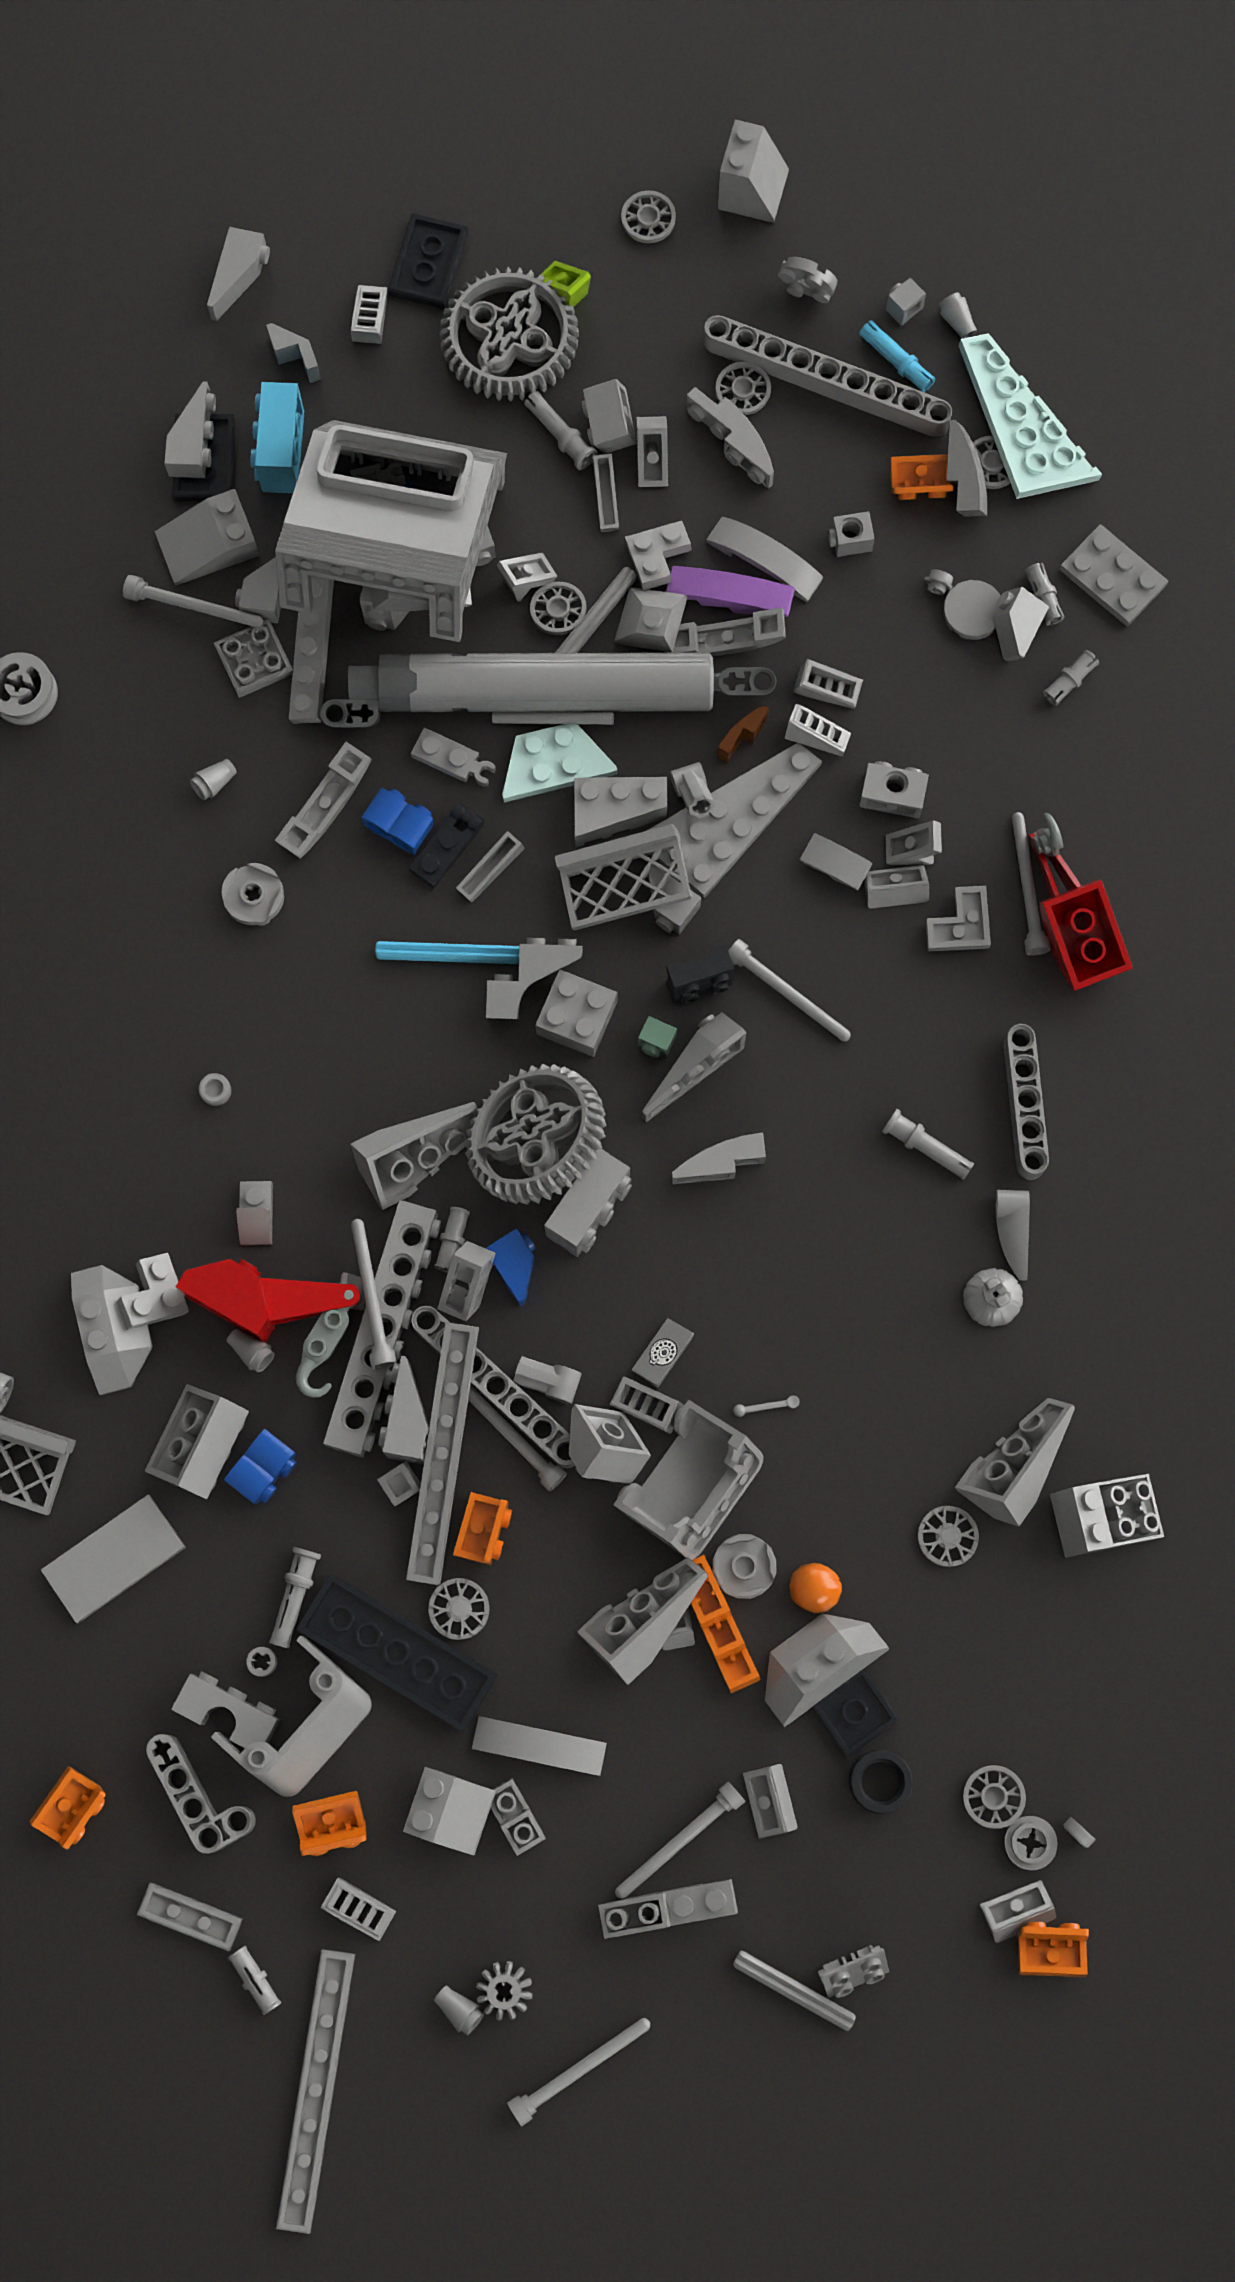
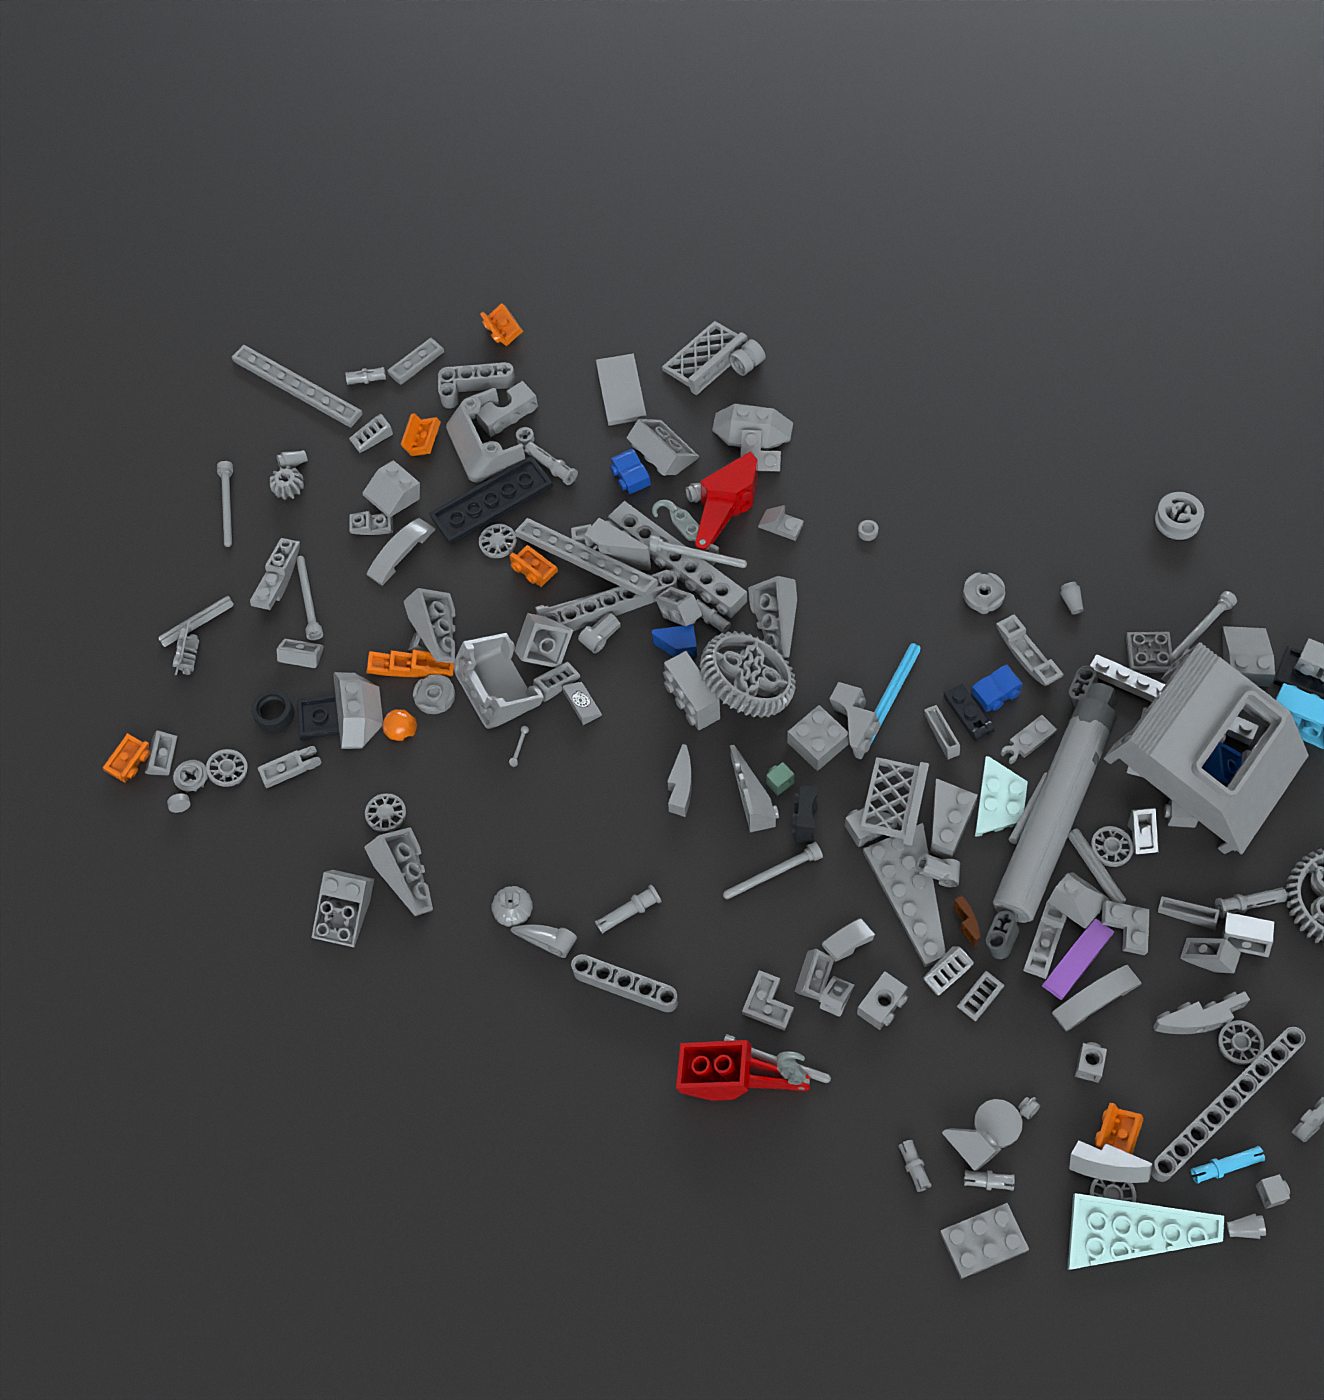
camera: 120 degrees right, 15 degrees down
(953, 1710) = (288, 766): none -> light grey hinge

